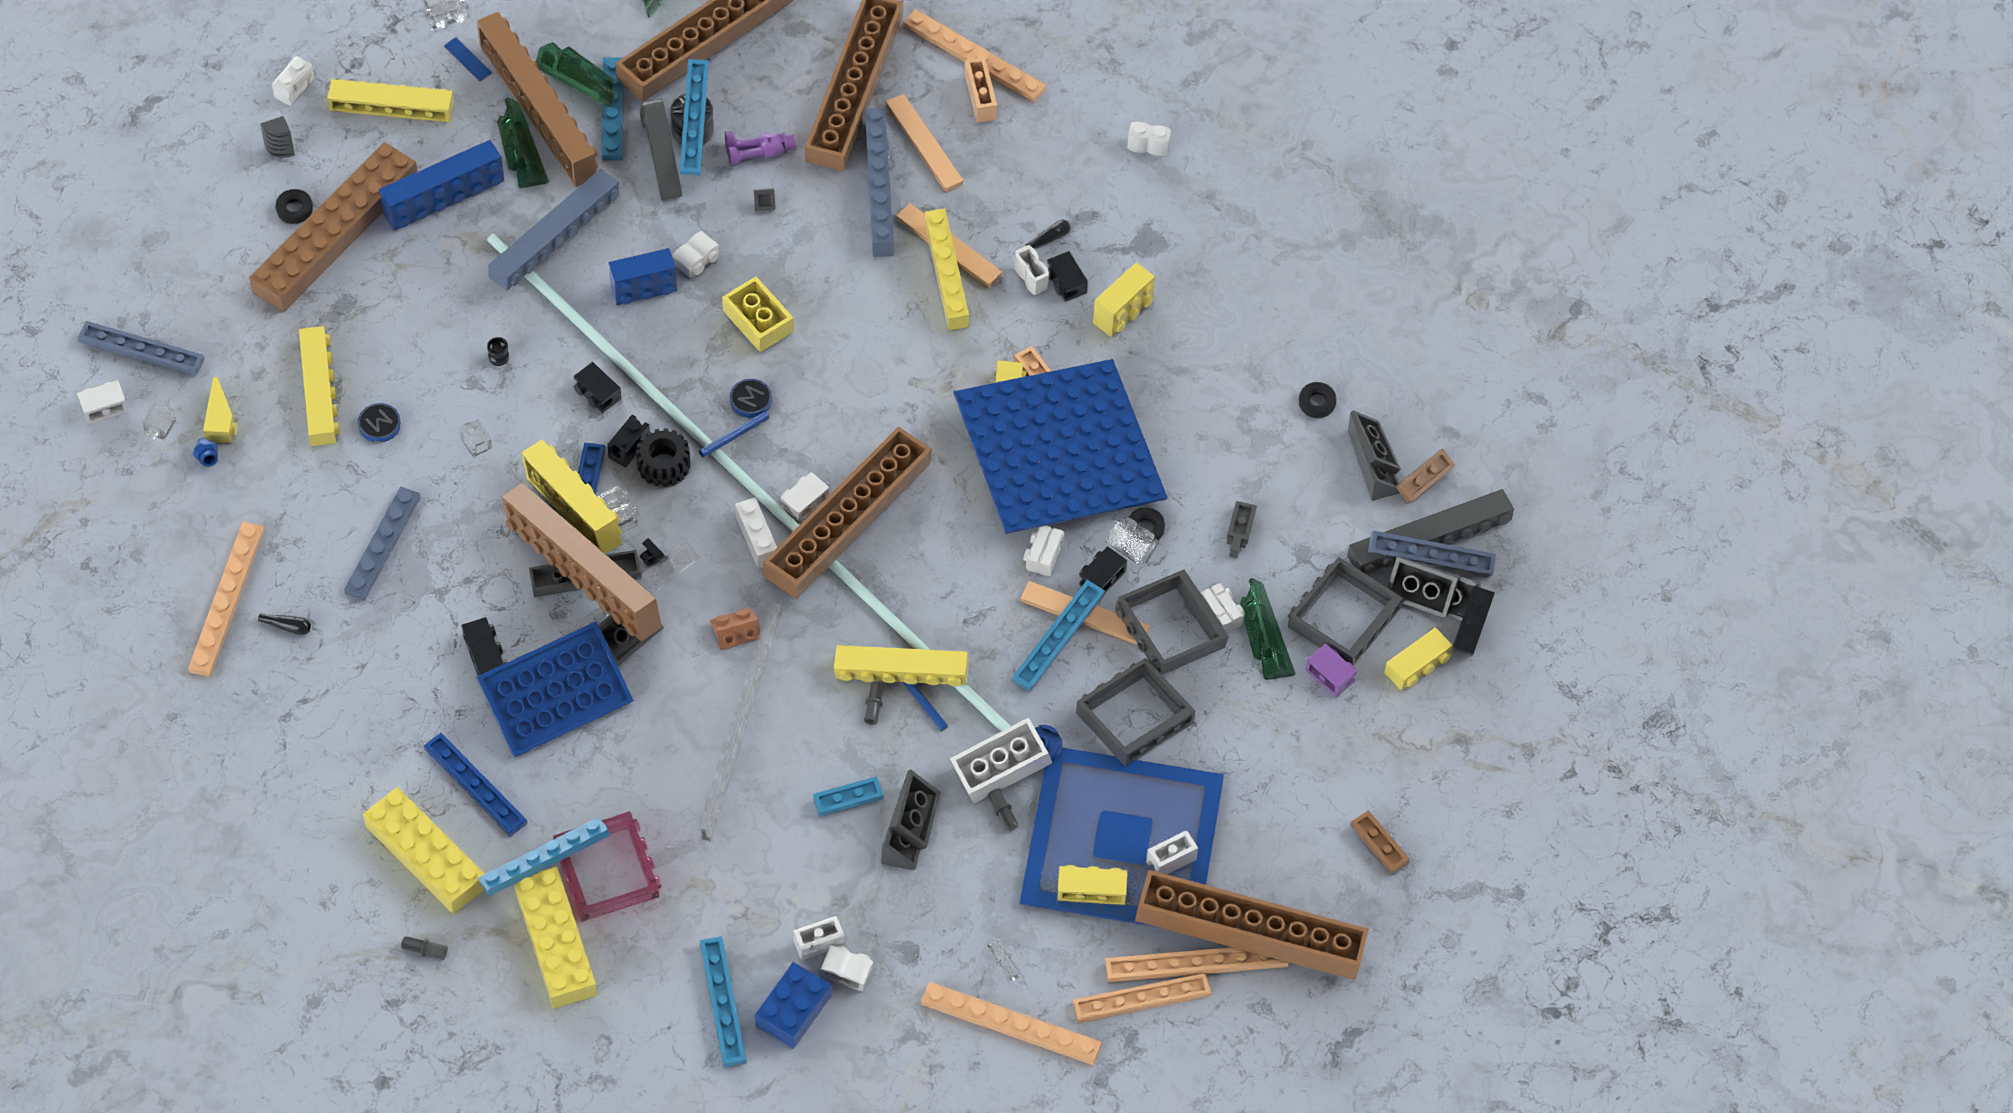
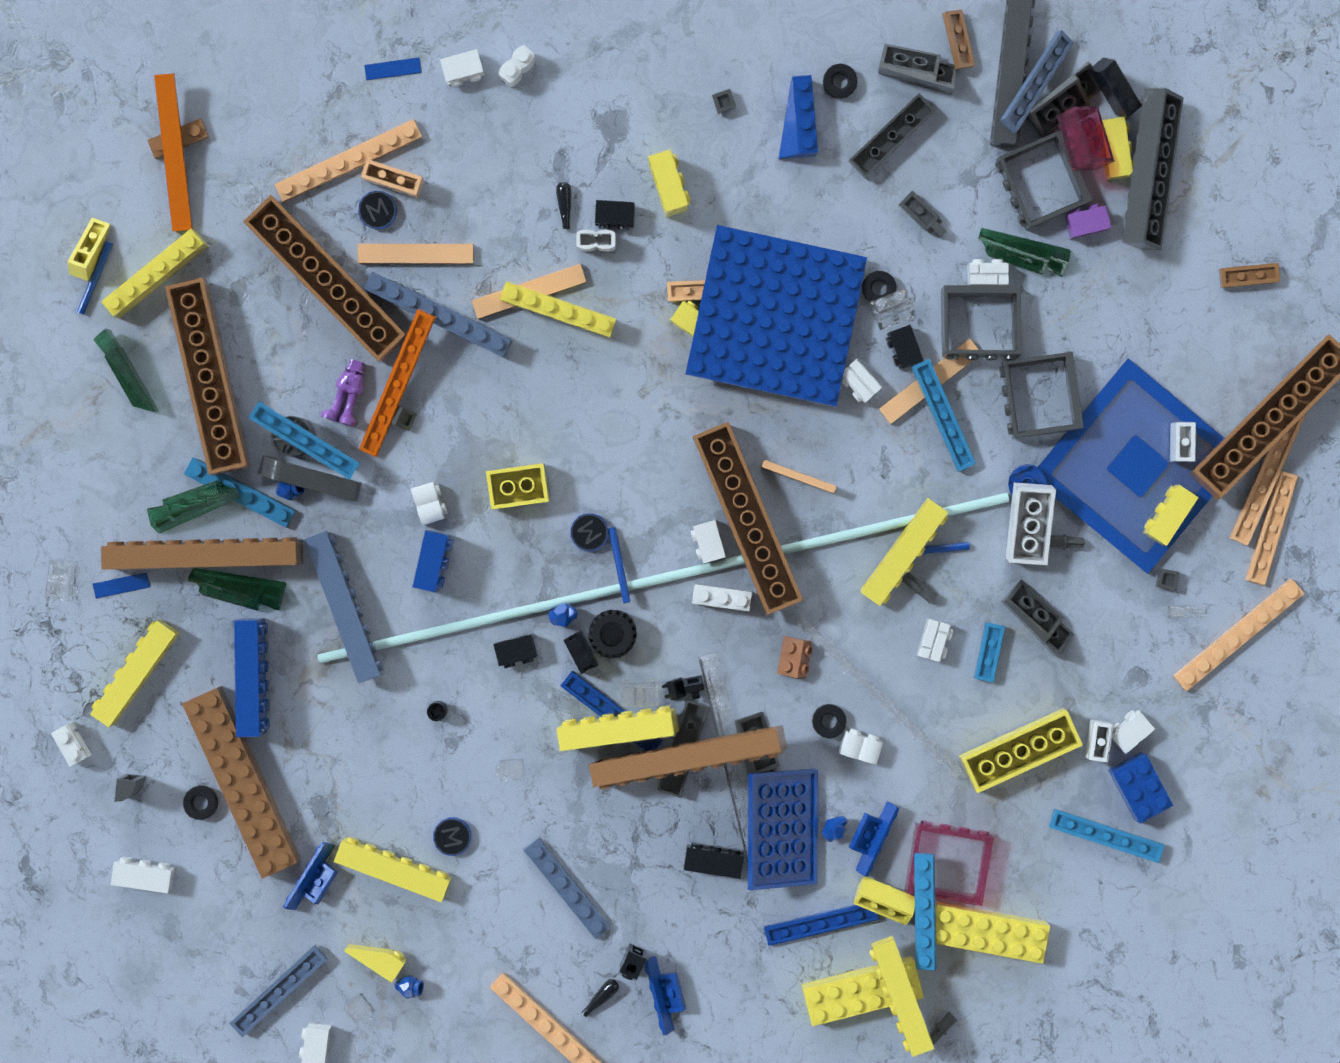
camera: 55 degrees left, 30 degrees up
(197, 190) = (143, 875): none -> white brick
(270, 325) = (314, 880): none -> blue bracket
(320, 674) = (666, 994): none -> blue bracket
(339, 624) = (632, 962): none -> black brick
(442, 871) = (902, 996): none -> light yellow brick
(532, 818) = (885, 900): none -> light yellow brick
(581, 743) = (834, 828): none -> blue rock
(593, 778) = (871, 836): none -> blue bracket
(638, 536) = (675, 688): none -> black tile
(639, 142) = (289, 491): none -> blue rock
(655, 408) = (562, 615): none -> blue rock
(680, 727) = (860, 746): none -> white brick
(695, 700) = (829, 732): none -> black tyre
(764, 869) = (1020, 750): none -> light yellow brick
(794, 175) = (397, 382): none -> orange tile
(829, 739) = (934, 640): none -> white brick
(917, 543) = (798, 476): none -> light nougat tile
(944, 96) = (377, 210): none -> black tile
(1025, 923) = (1167, 579): none -> dark grey plate
(1081, 53) = (392, 68): none -> blue sticker
(1118, 99) = (462, 68): none -> white brick
(1231, 314) = (724, 101): none -> dark grey plate
(1250, 389) = (799, 128): none -> blue wedge
(1296, 464) = (891, 135): none -> dark grey piece
(1407, 618) = (1085, 138): none -> clear pink brick
(1419, 693) = (1152, 169): none -> dark grey brick

